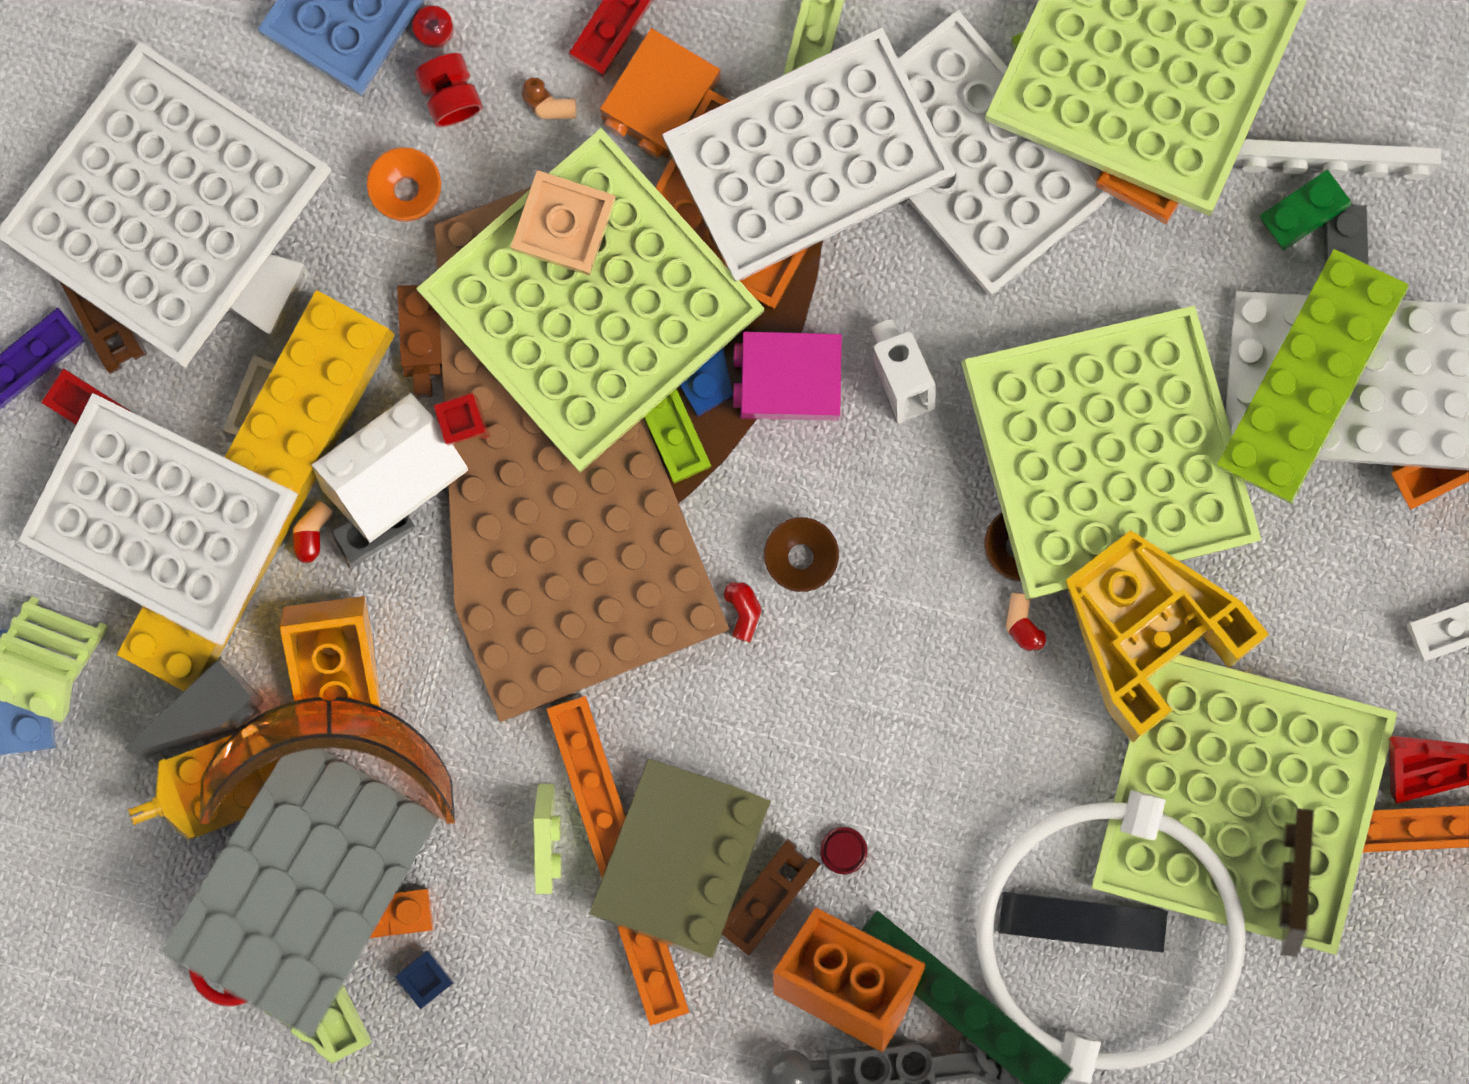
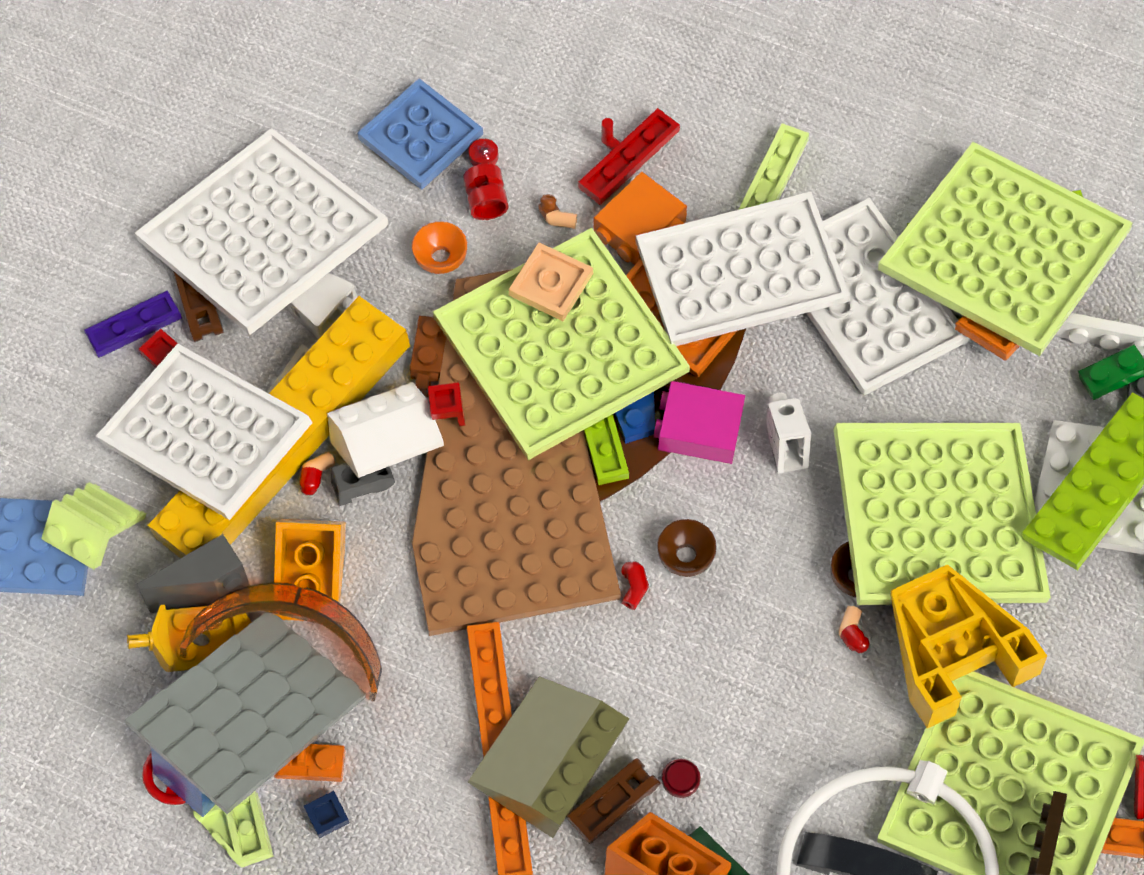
camera: 15 degrees right, 20 degrees down
(546, 831) = (446, 713): yellowish green wing -> none

